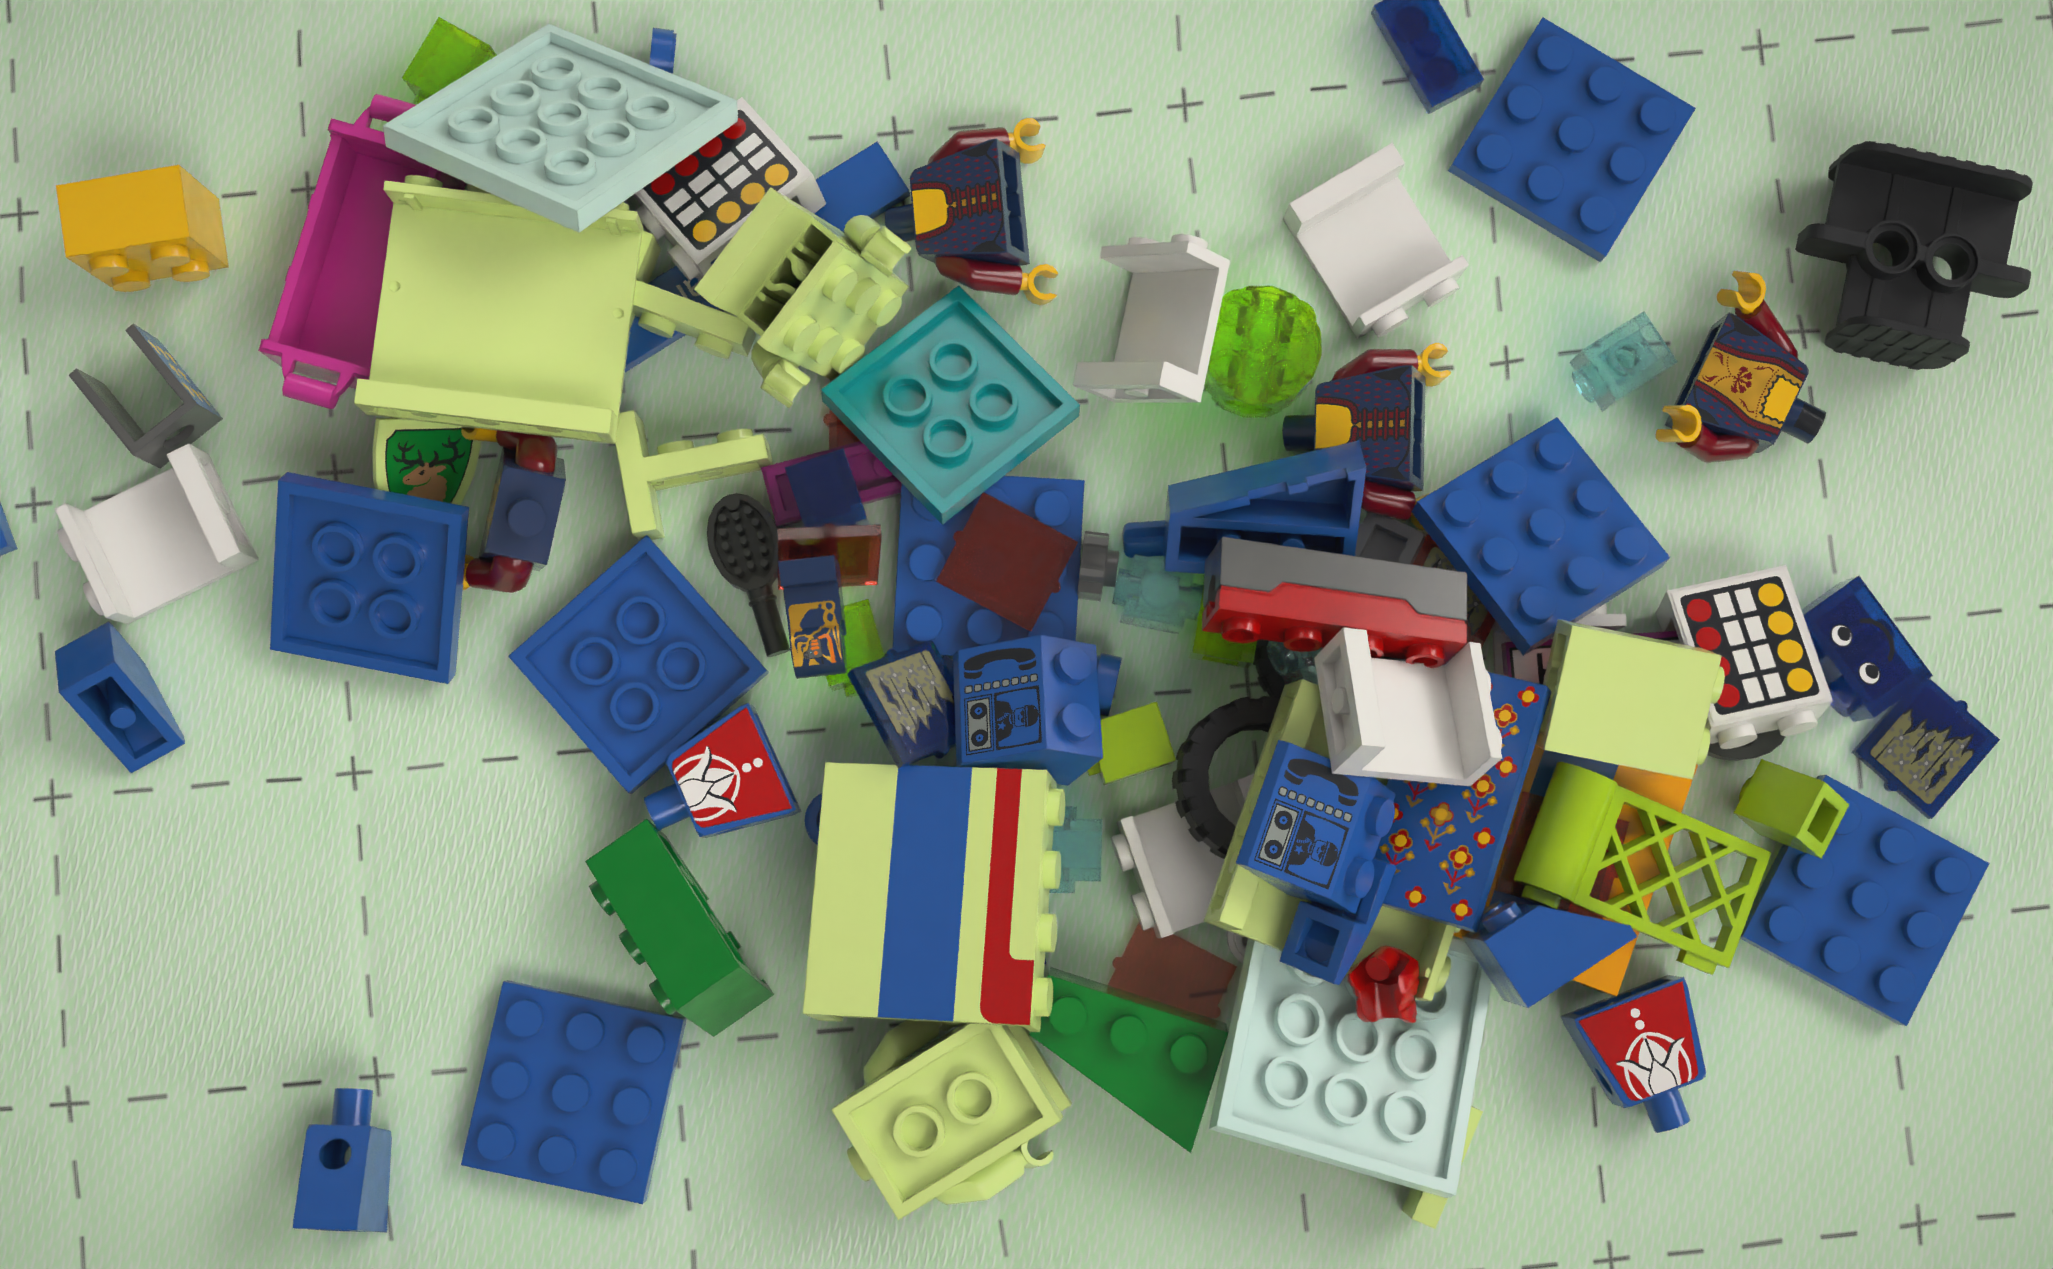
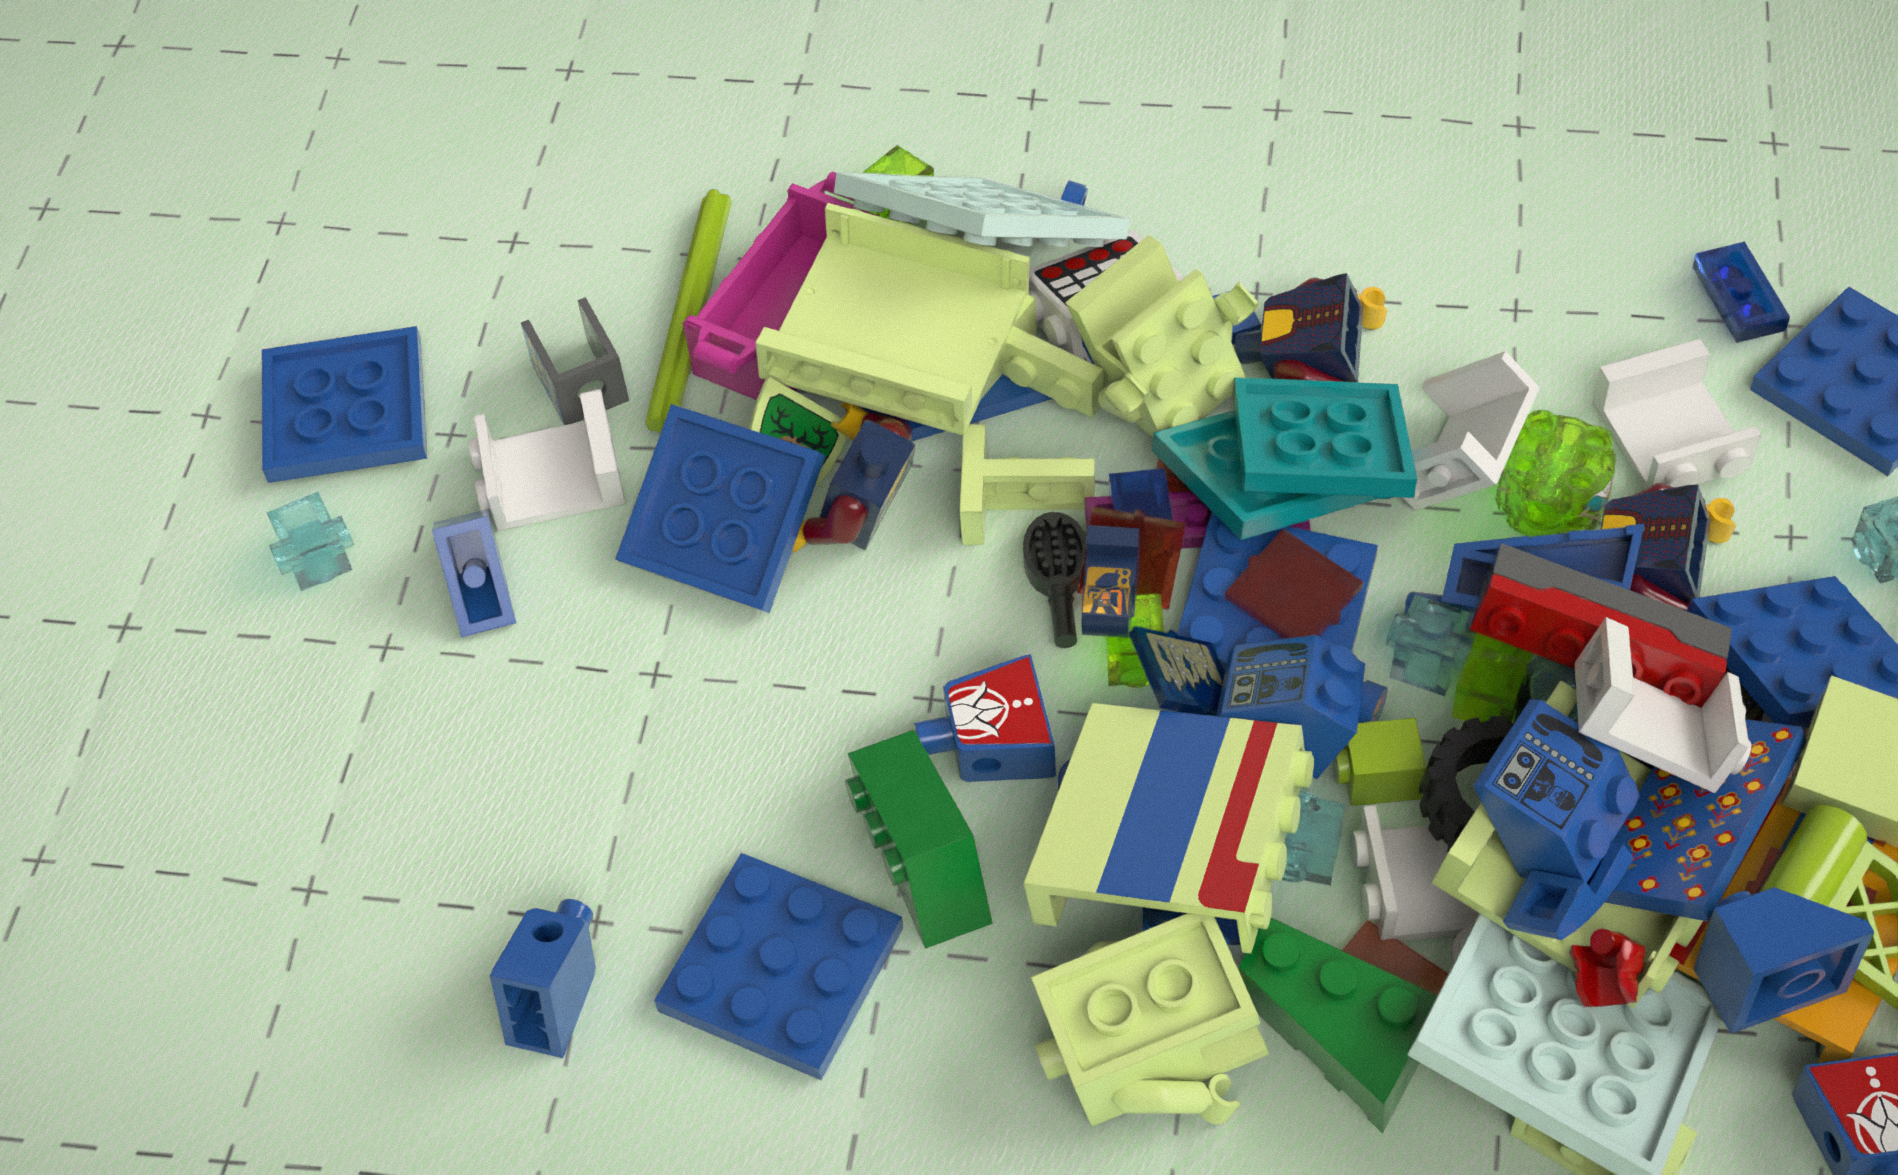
camera: 20 degrees right, 30 degrees down
(142, 227) = (615, 241): yellow brick -> none
(255, 283) = (691, 298): none -> lime axle
(638, 664) = (933, 622): blue plate -> none
(1006, 370) = (1323, 438): none -> teal plate
(1097, 566) = (1375, 610): dark grey plate -> none

